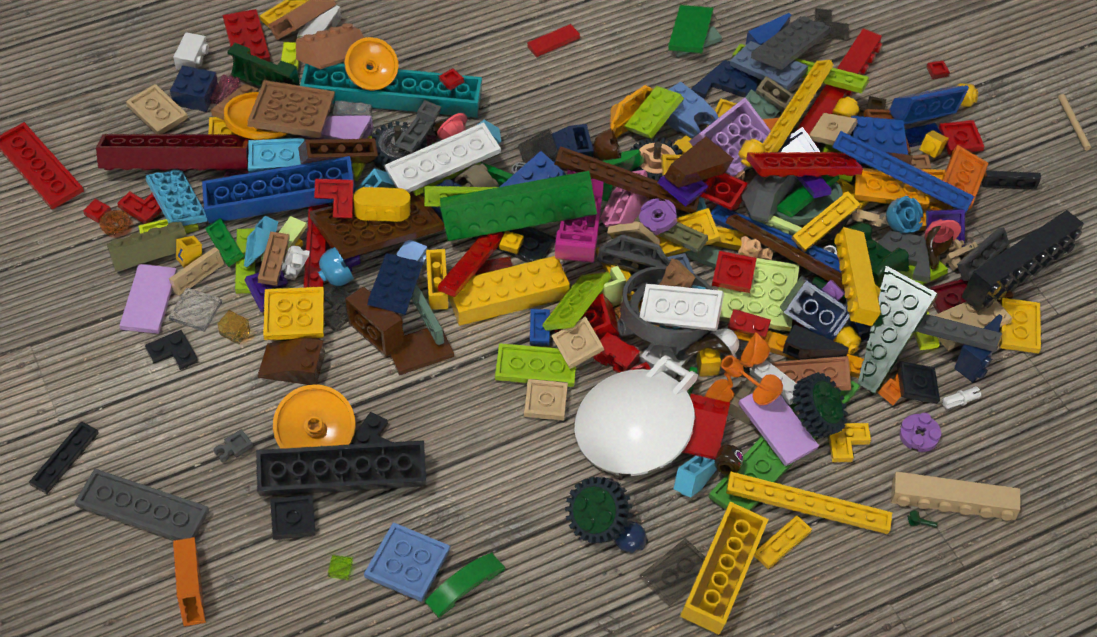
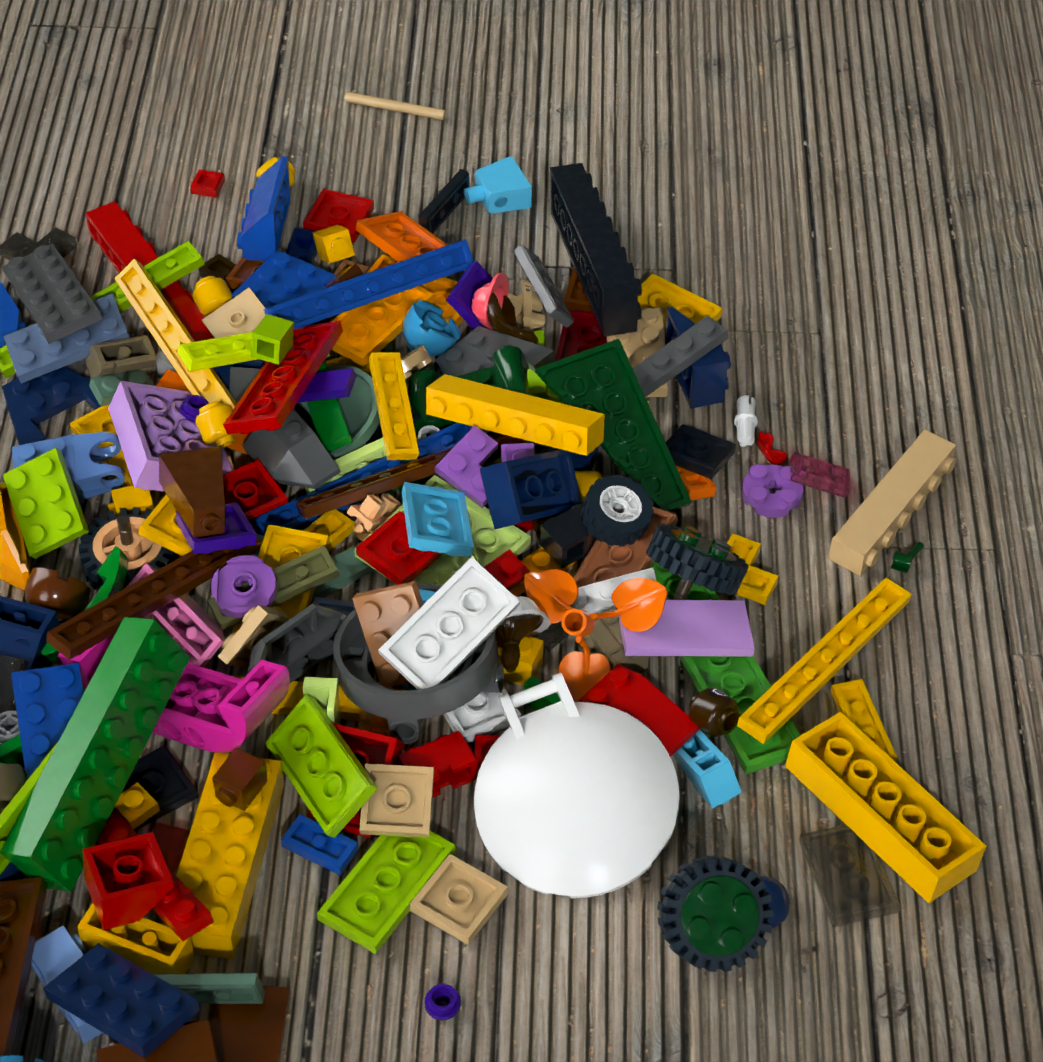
camera: 60 degrees left, 5 degrees down
(453, 250) = (126, 879): none -> red slope
(484, 414) = (439, 993): none -> dark purple plate
(540, 269) = (239, 779): none -> reddish brown brick
(758, 135) = (190, 407): none -> dark purple plate
(760, 275) = (437, 520): none -> medium azure plate
(802, 130) = (216, 352): none -> neon yellow tile
(813, 270) = (463, 464): none -> medium lavender plate
(822, 144) = (272, 339): none -> lime brick
(837, 349) = (617, 510): none -> black wheel
(945, 458) = (820, 475): none -> clear pink tile
(955, 415) = (765, 443): none -> red piece
(1047, 199) = (500, 187): none -> medium azure torso

